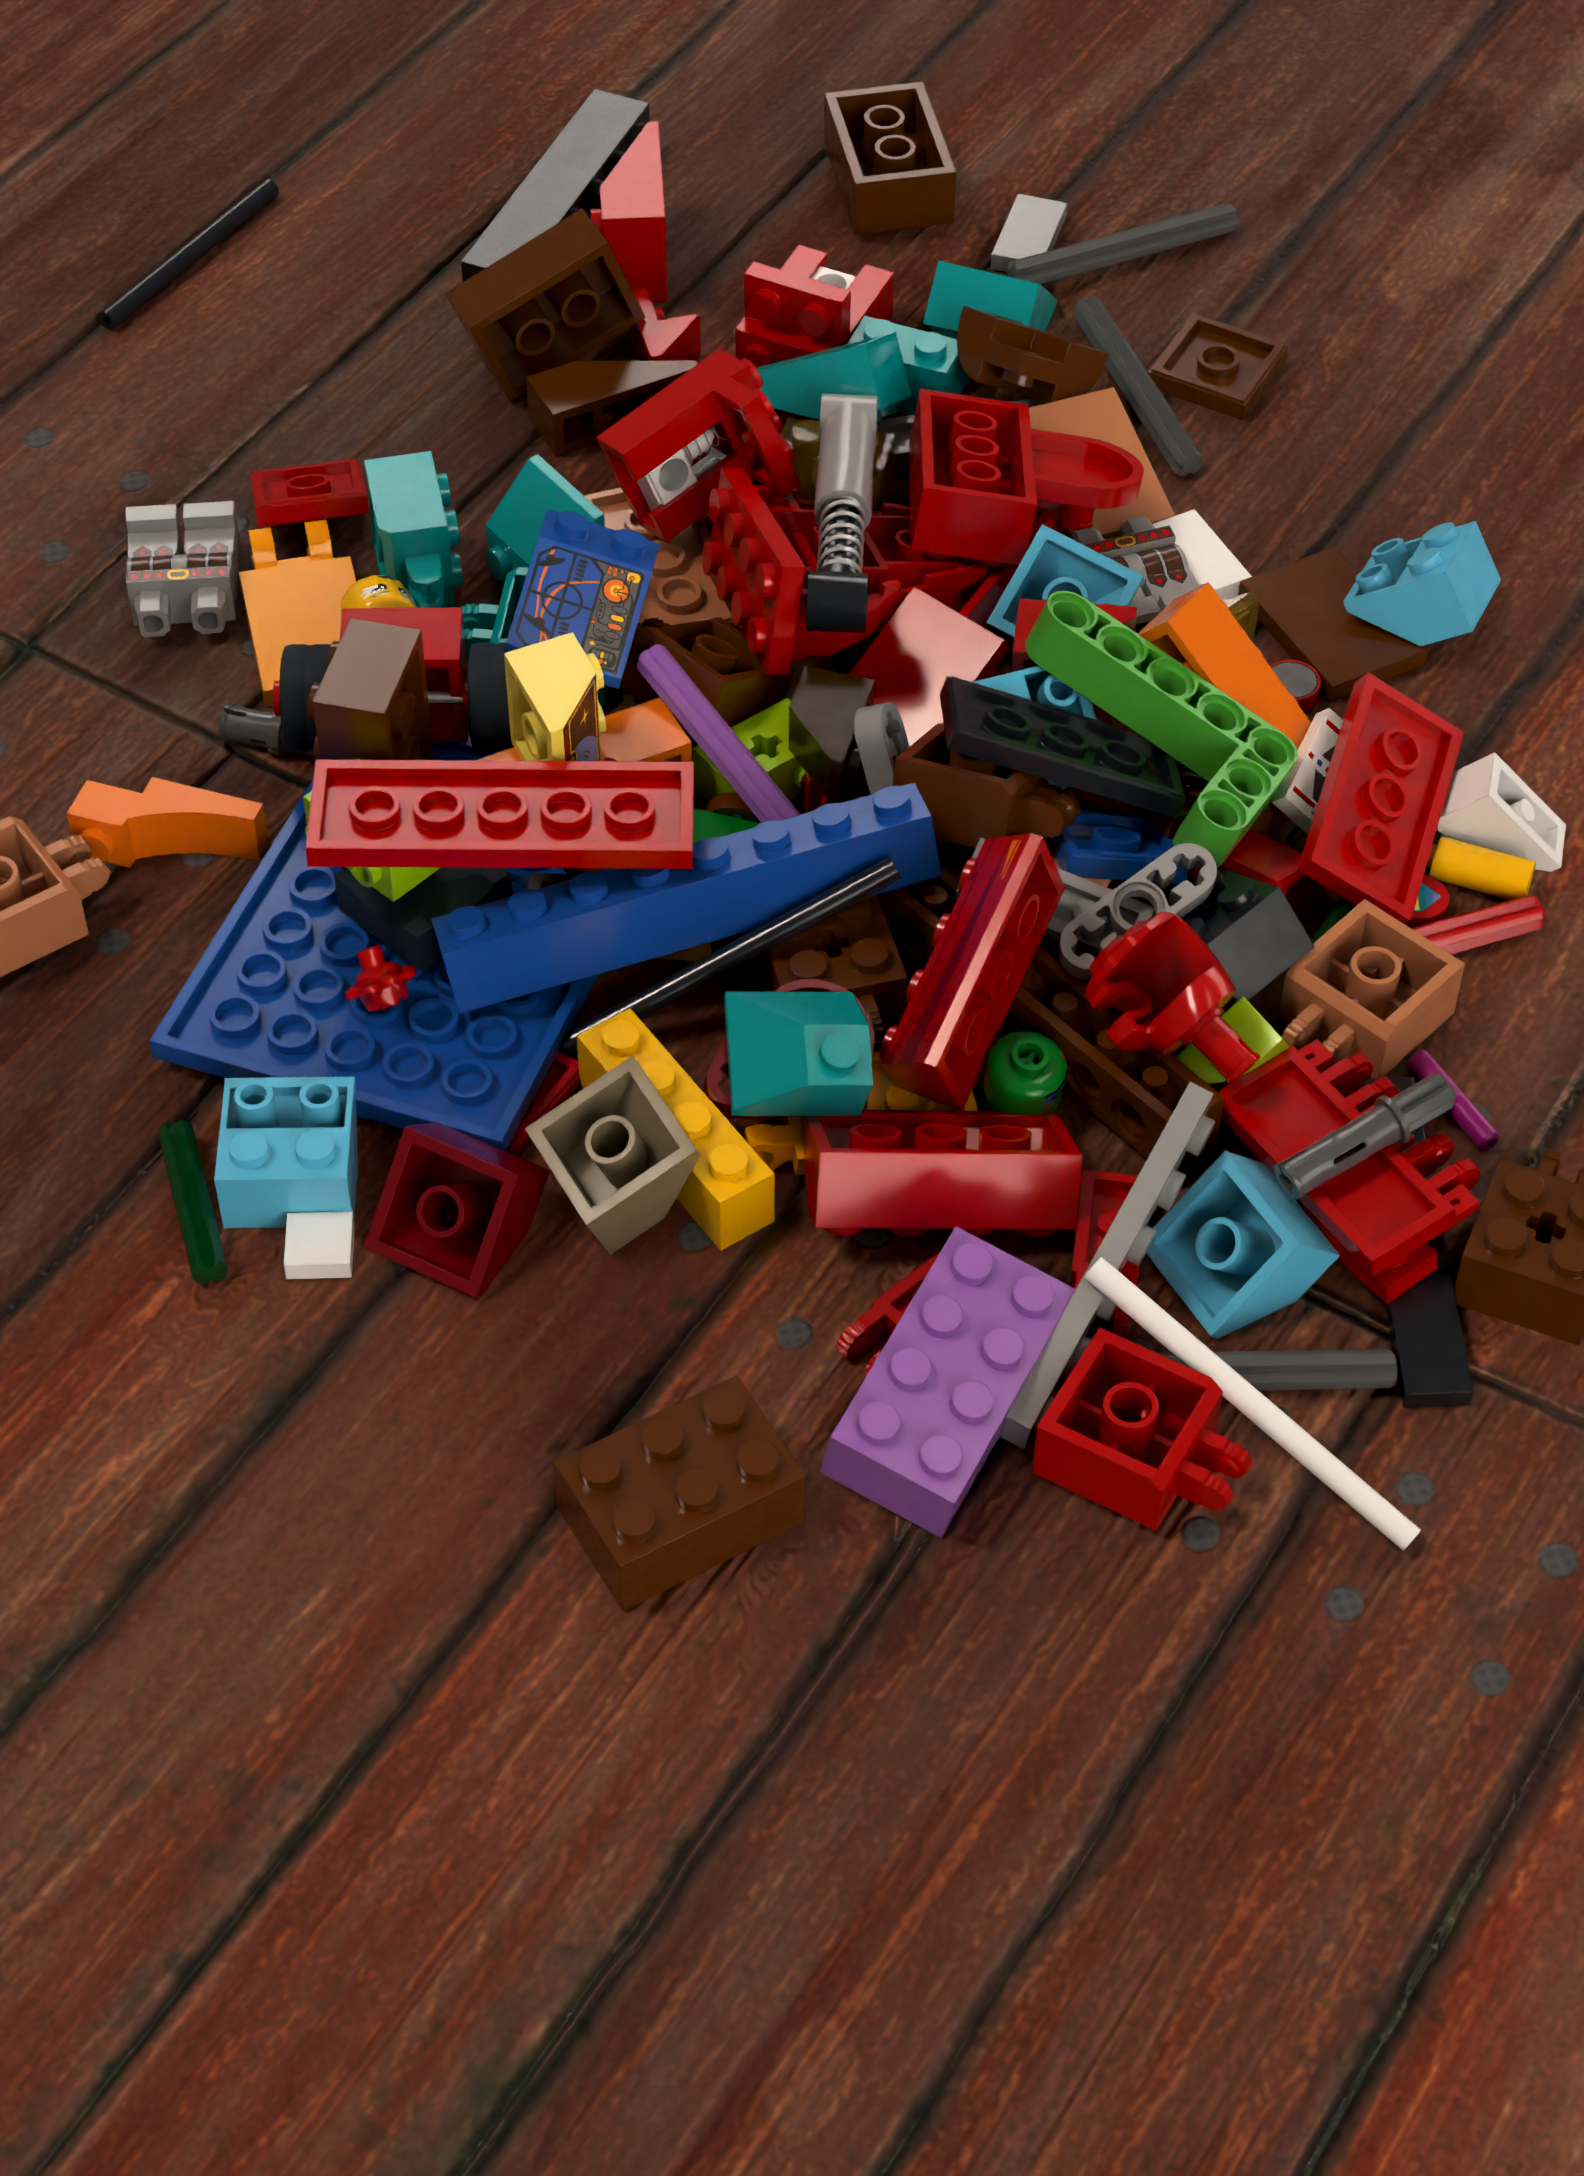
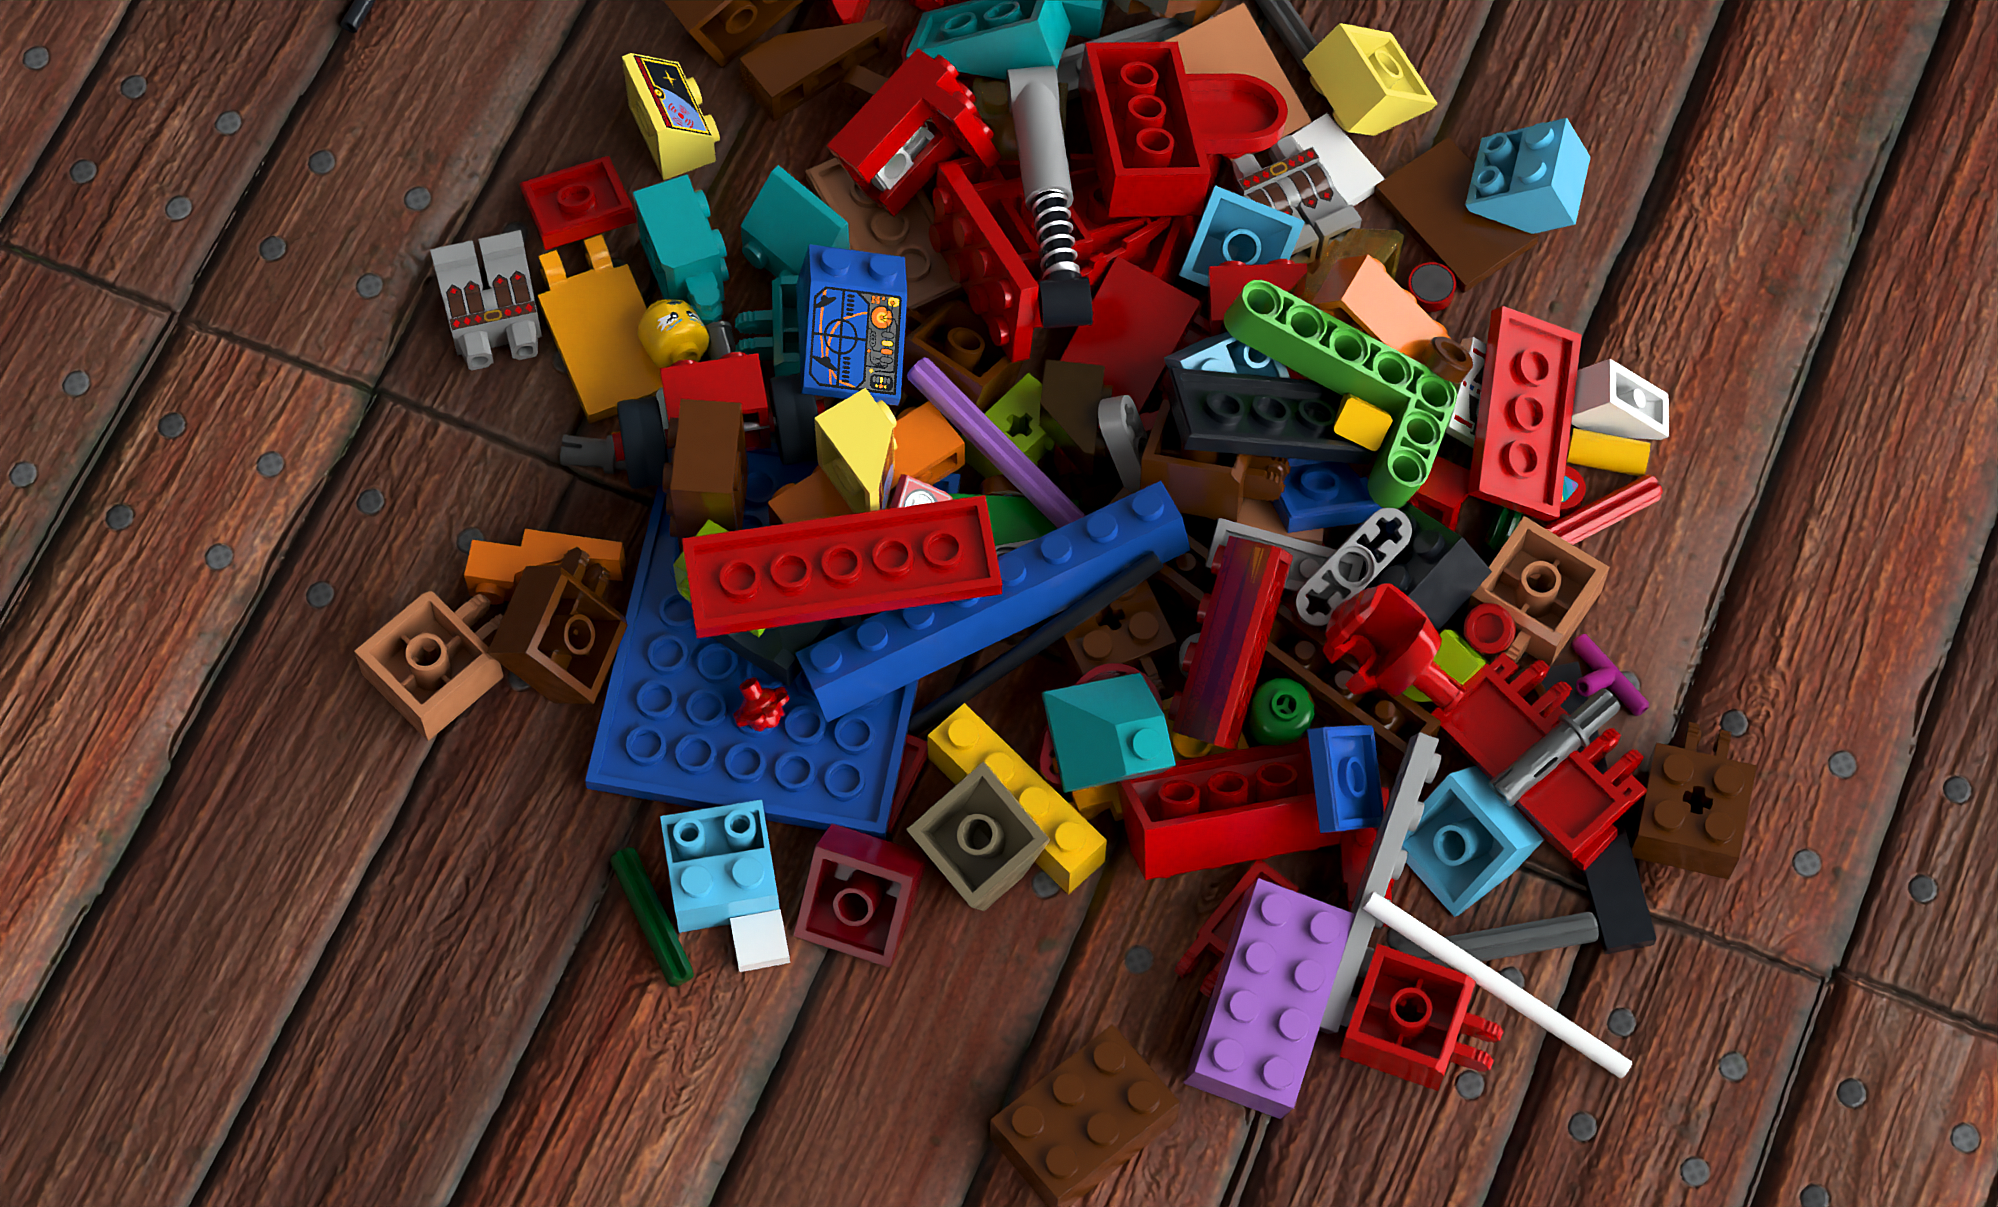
camera: 10 degrees left, 15 degrees up
(160, 879) = (560, 630): none -> reddish brown hinge
(435, 415) = (669, 115): none -> light yellow slope
(1088, 1131) = (1346, 777): none -> blue tile
(1176, 764) = (1362, 422): none -> yellow slope
(1245, 482) = (1367, 80): none -> light yellow slope
(1292, 719) = (1447, 359): none -> reddish brown tile
(1303, 1011) = (1489, 628): none -> red tile

